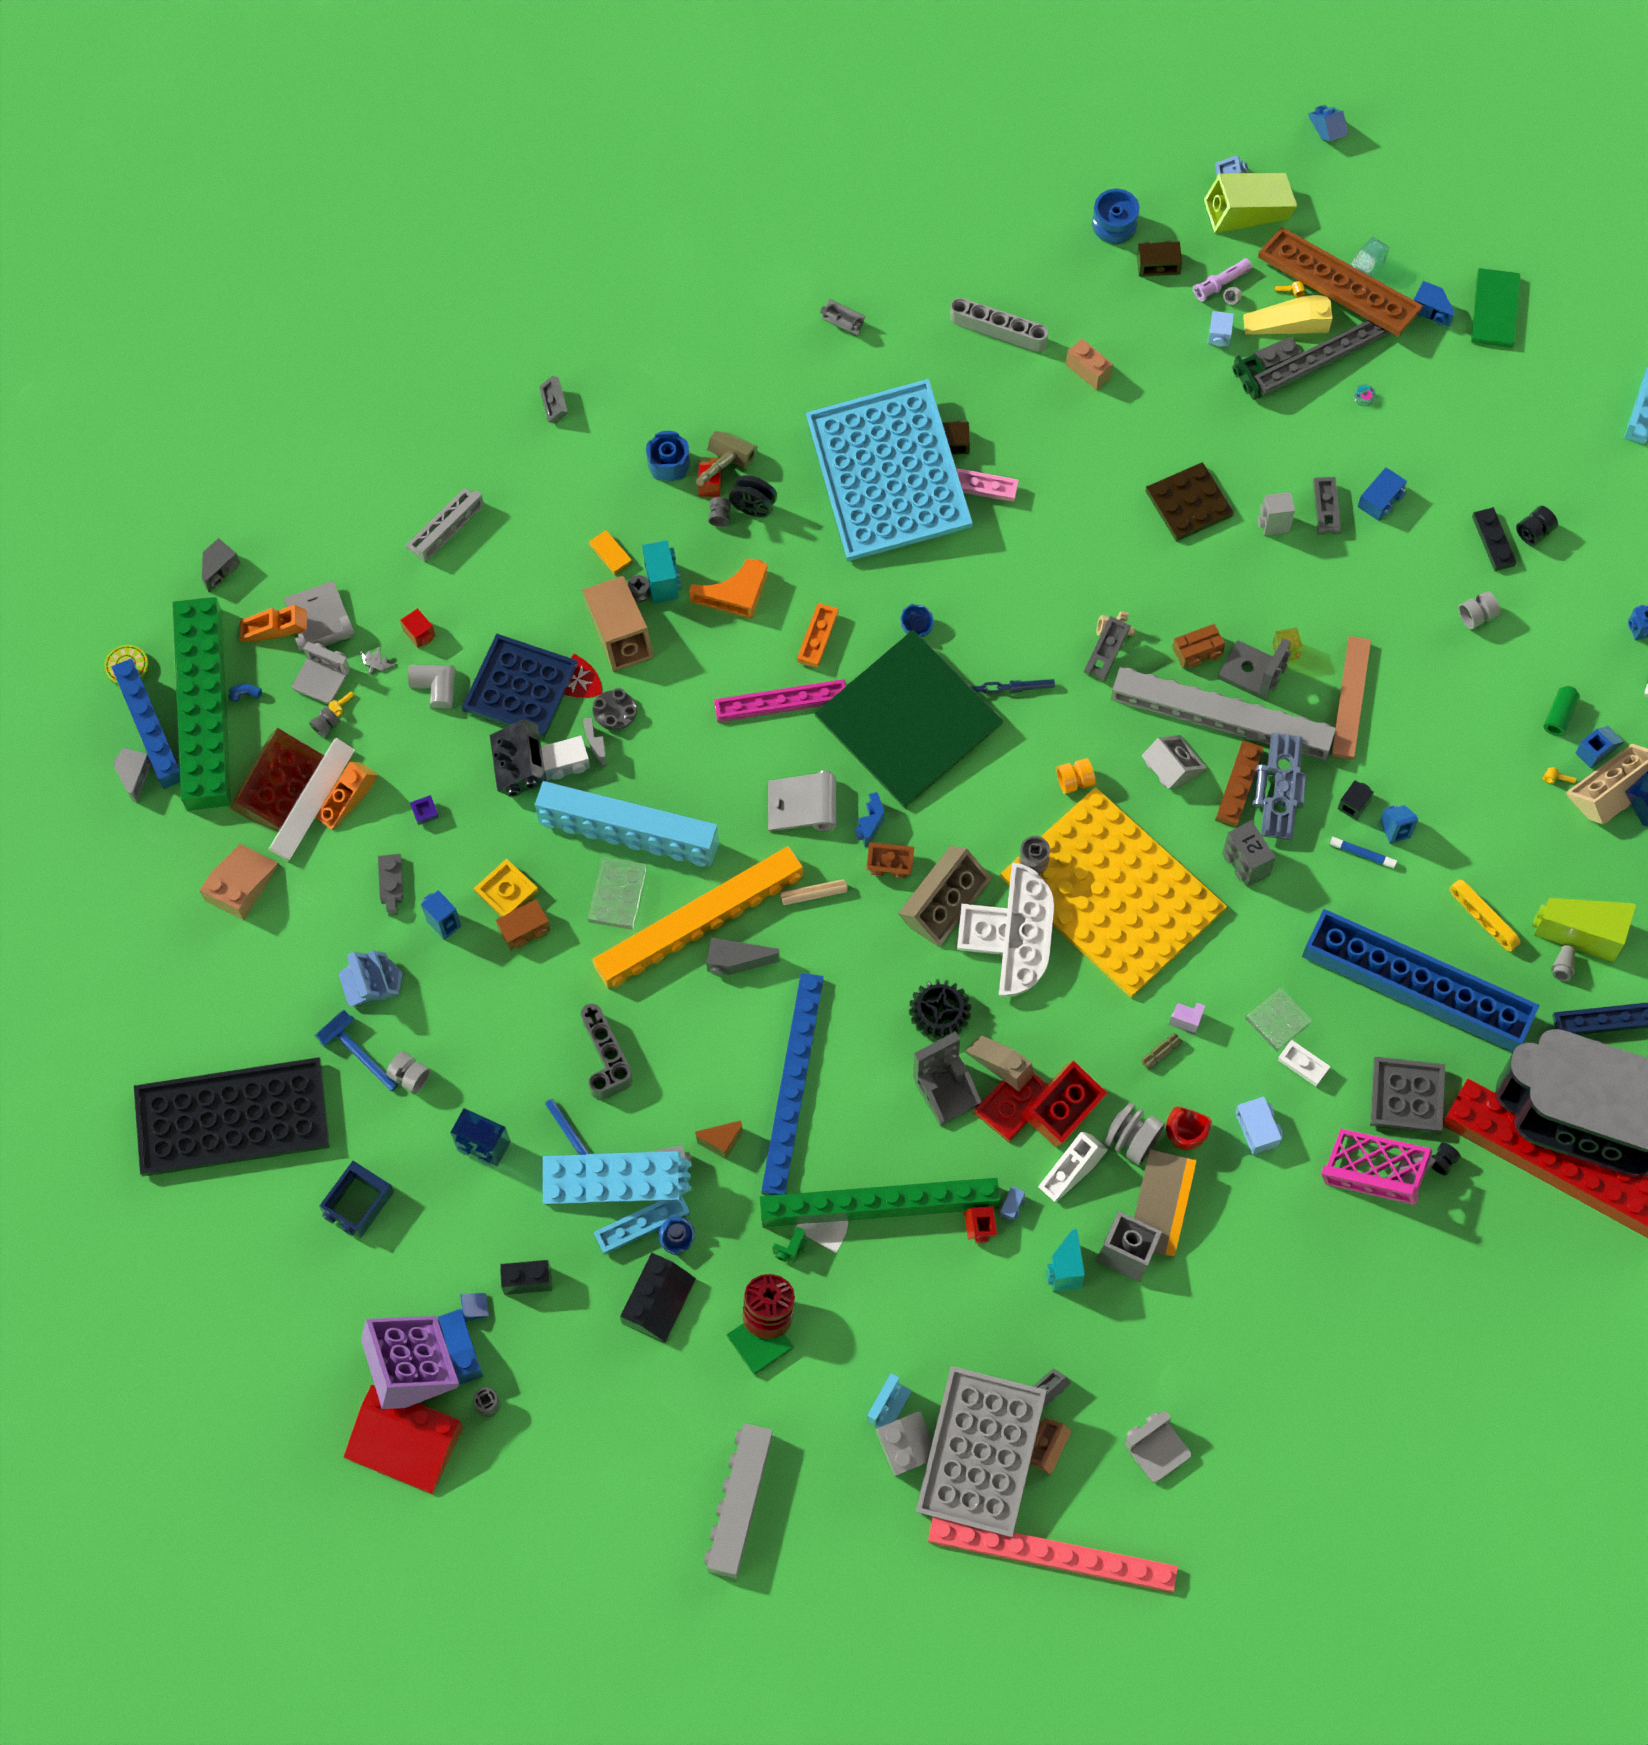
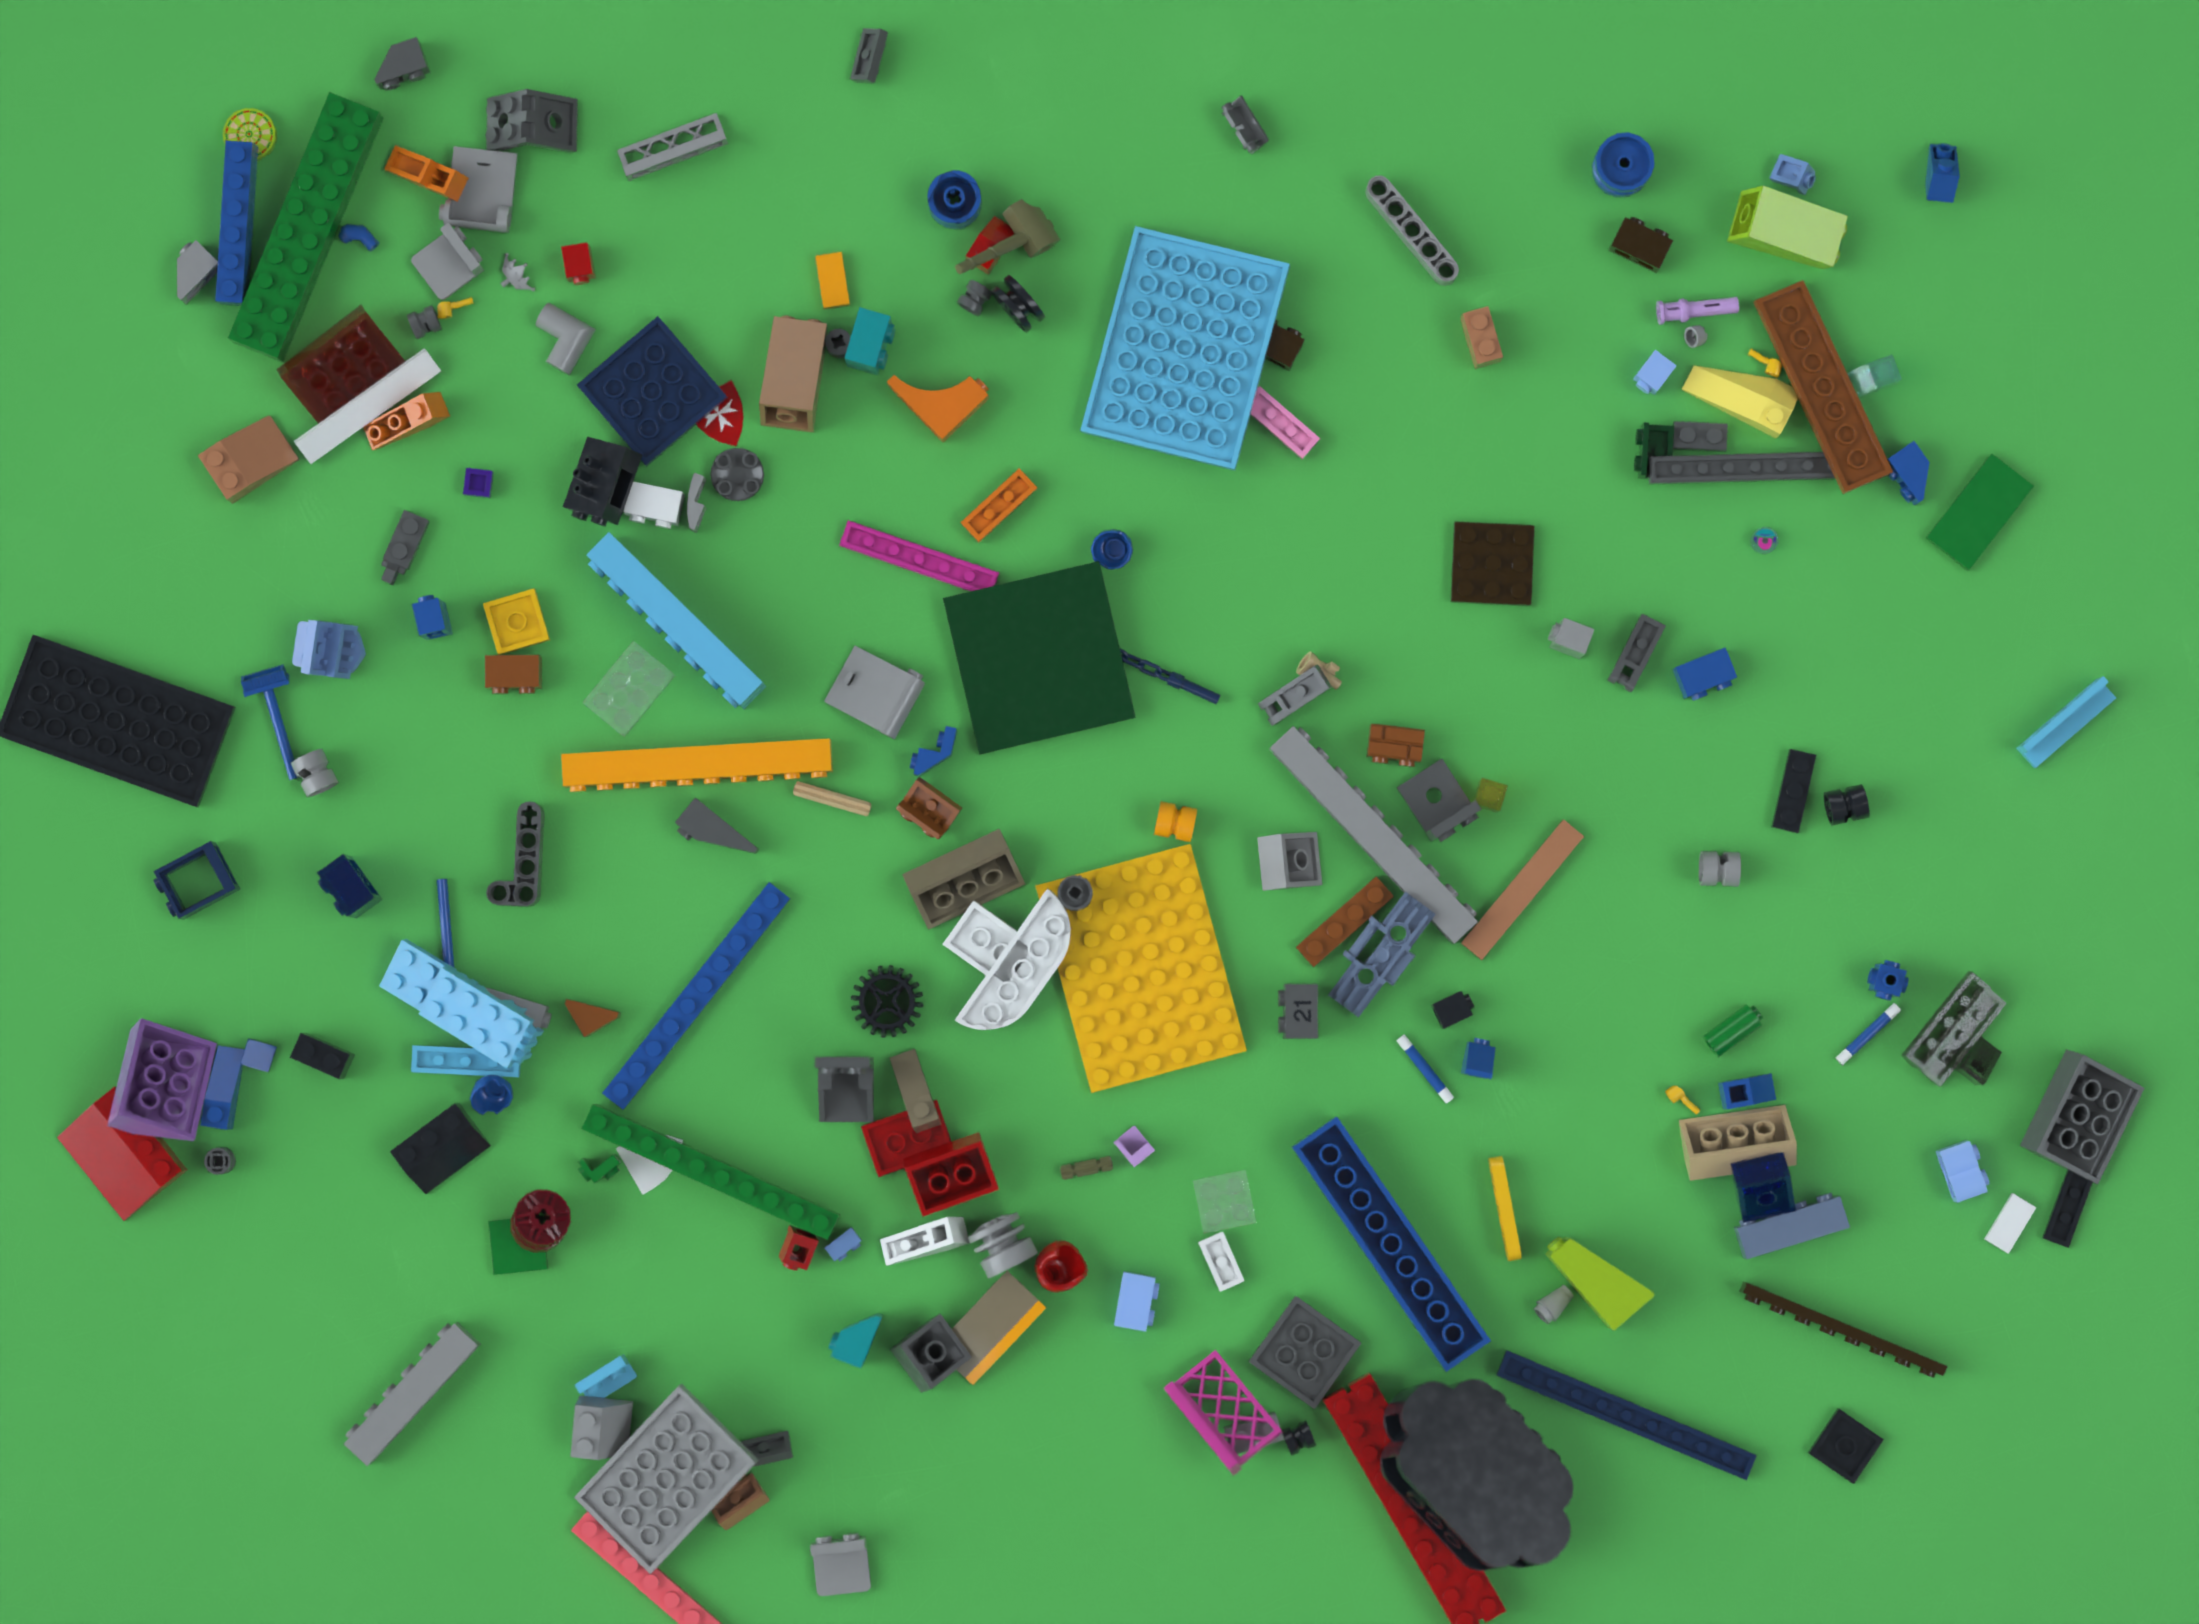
camera: 25 degrees right, 20 degrees up
(331, 547) = (529, 121): none -> dark grey bracket

